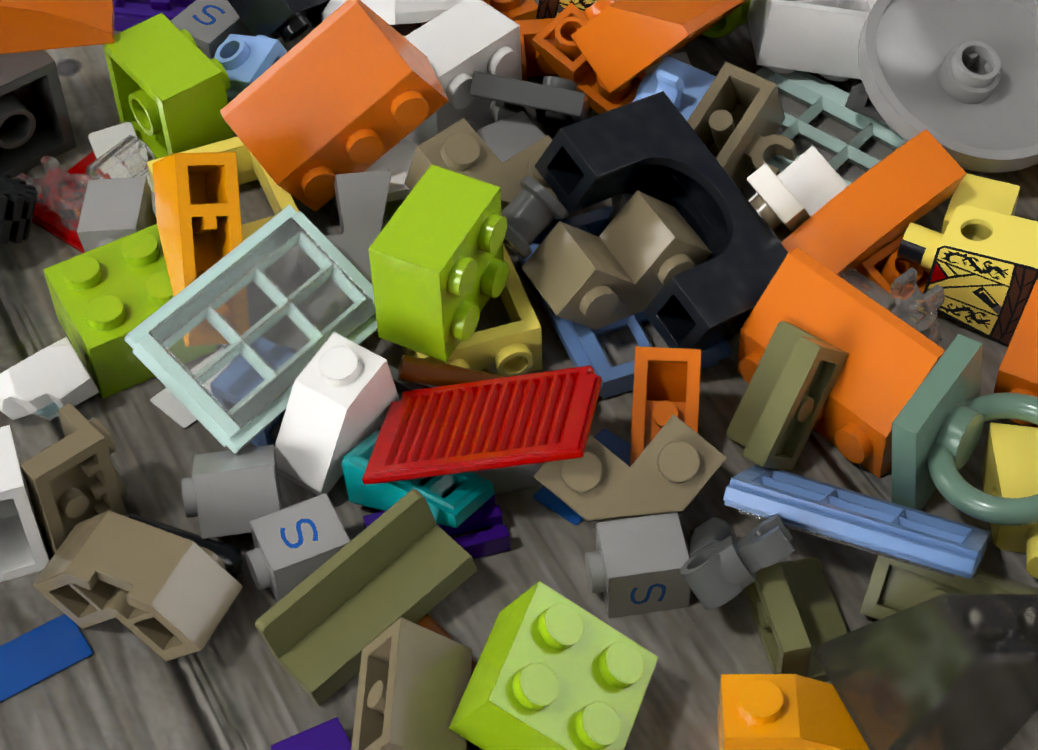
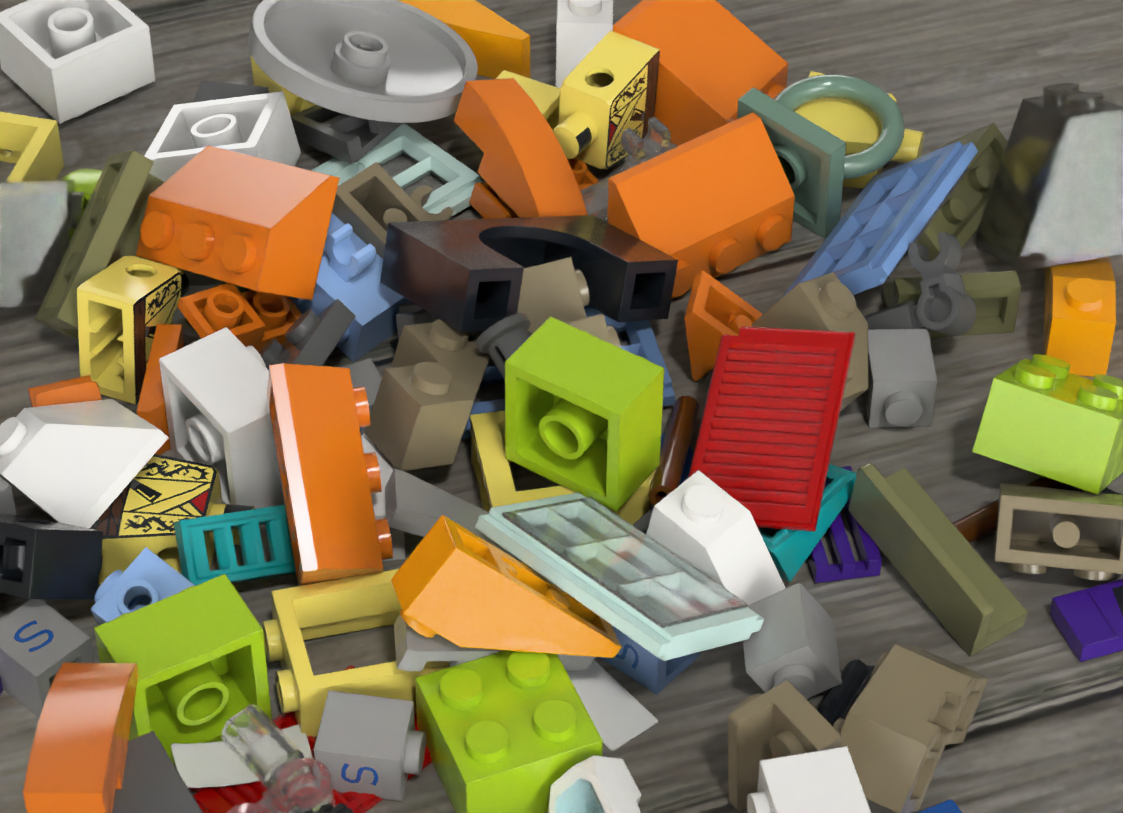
camera: 85 degrees left, 5 degrees down
(294, 544) = (866, 605): light grey brick -> none
(785, 397) = (738, 242): olive panel -> none
(794, 193) = (480, 193): brick -> none

